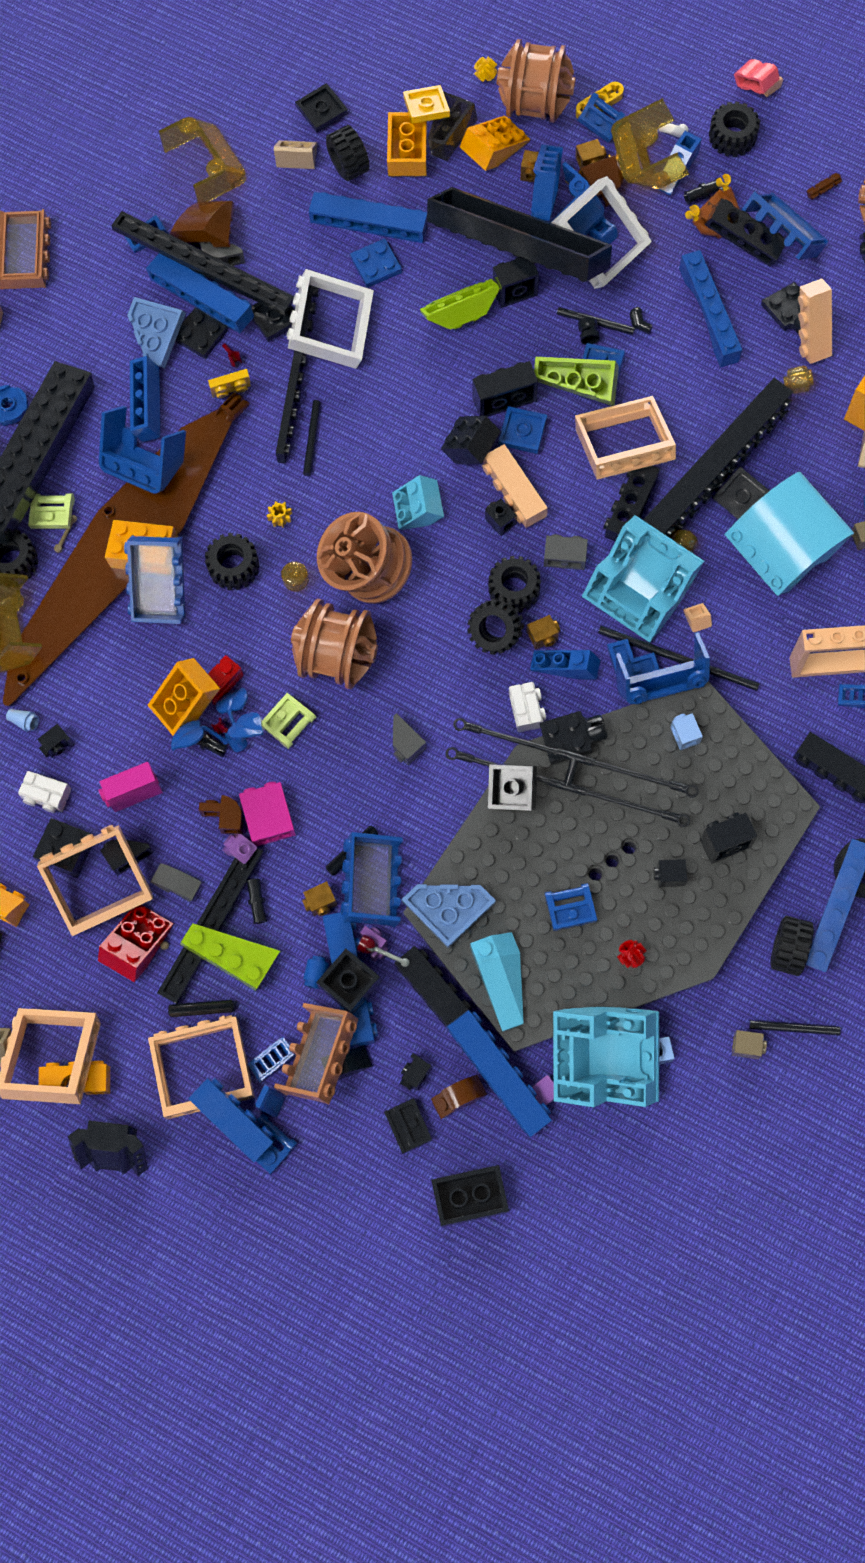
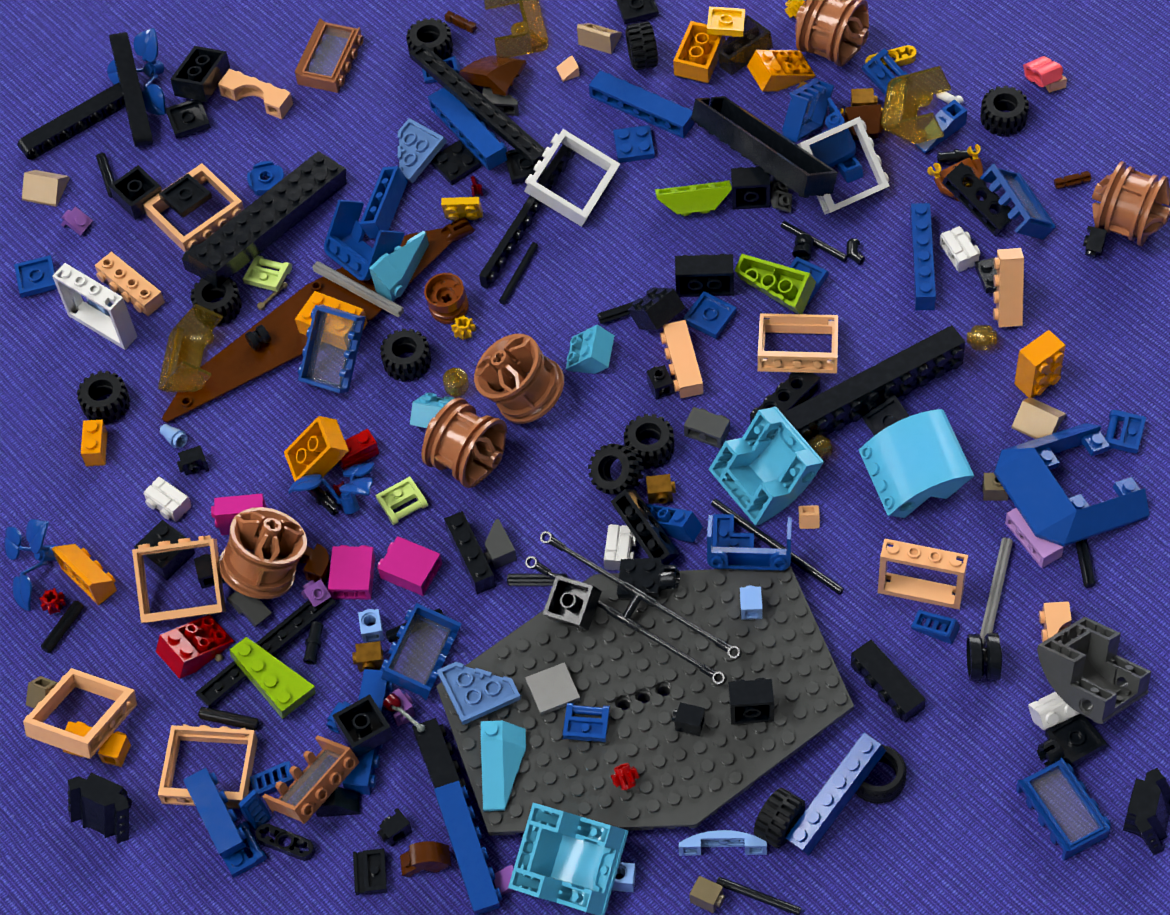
camera: 20 degrees right, 15 degrees down
(71, 586) = (258, 337): none -> black wheel
(118, 193) = (431, 31): none -> black tyre
(145, 173) = (460, 21): none -> reddish brown axle
(154, 502) = (358, 289): none -> light grey axle
(173, 826) = (274, 549): none -> nougat wheel
(187, 474) = (394, 270): none -> medium azure wedge
(245, 479) = (446, 297): none -> dark orange wheel
(278, 197) = (568, 69): none -> light nougat slope
(283, 613) = (426, 408): none -> medium azure slope
(293, 1114) = (278, 834): none -> black beam
(308, 874) = (374, 632): none -> light blue brick
(323, 789) = (409, 565): none -> dark pink brick
(379, 757) = (469, 552): none -> black brick
(428, 453) = (614, 313): none -> black axle
(452, 765) = (531, 579): none -> black axle
(523, 881) = (552, 688): none -> light grey tile
(547, 284) = (779, 195): none -> dark grey slope
(547, 679) = (644, 526): none -> black brick
(742, 290) = (959, 248): none -> white brick
(768, 978) = (722, 838): none -> light blue slope

